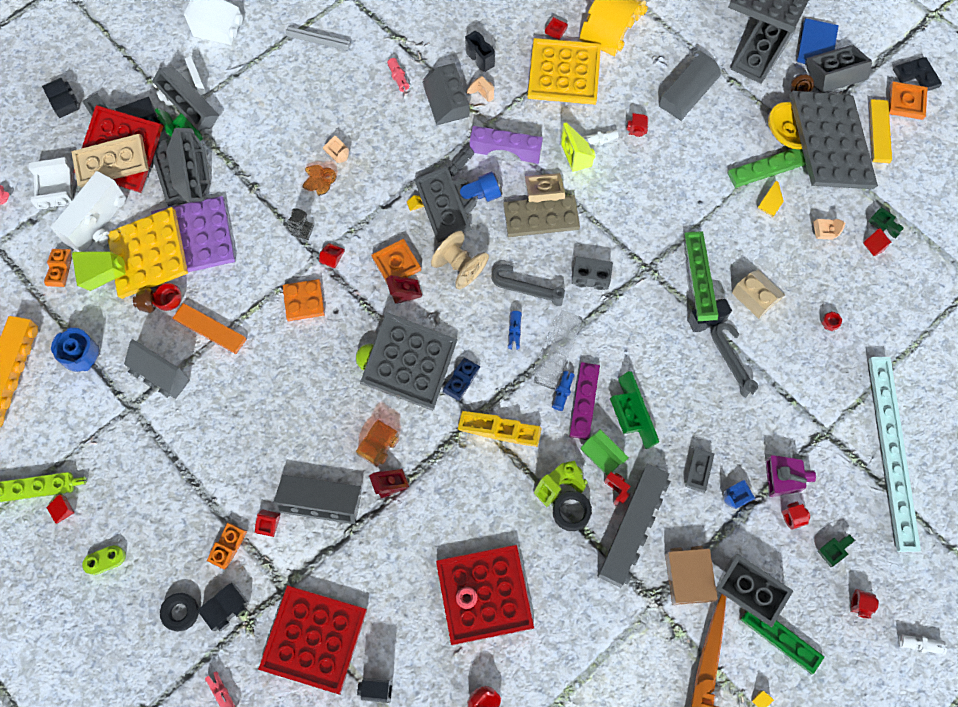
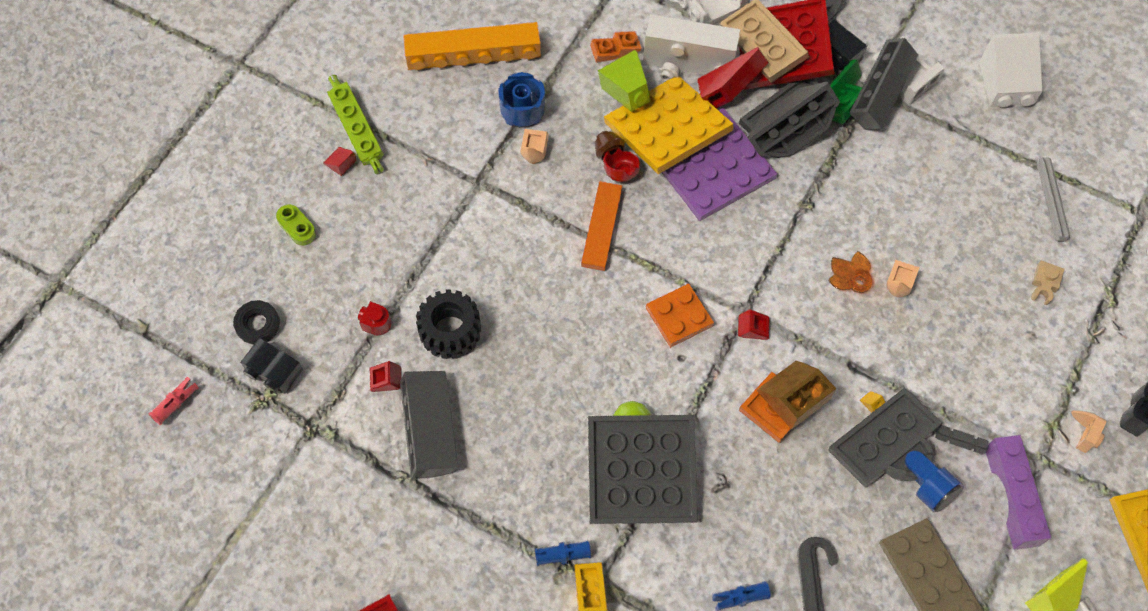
camera: 70 degrees right, 5 degrees down
(116, 353) = (534, 145): none -> light nougat plate
(132, 196) = (731, 78): none -> red slope
(154, 370) = (526, 188): dark grey slope -> none
(216, 516) = (374, 319): none -> red plate
(227, 546) = (342, 344): orange slope -> none
(234, 450) = (445, 306): none -> black tyre
(299, 224) = (775, 272): clear smoke leg -> none
(313, 640) = (257, 480): red plate -> none
(372, 67) = (1047, 279): none -> tan plate
(375, 690) = (208, 573): black brick -> none
(377, 443) = (520, 469): clear orange brick -> none
(388, 482) = (473, 499): dark red slope -> none
(394, 242) = (797, 392): none -> pearl gold slope
(398, 74) = (1053, 314): coral pin -> none
(403, 288) = (741, 428): dark red slope -> none
(446, 95) = (1054, 386): dark grey slope -> none
(447, 434) = (562, 553): none -> blue pin
(451, 252) = (814, 469): tan piece -> none
(462, 379) = (645, 547): dark blue slope -> none
(544, 187) = (975, 568): tan plate -> none

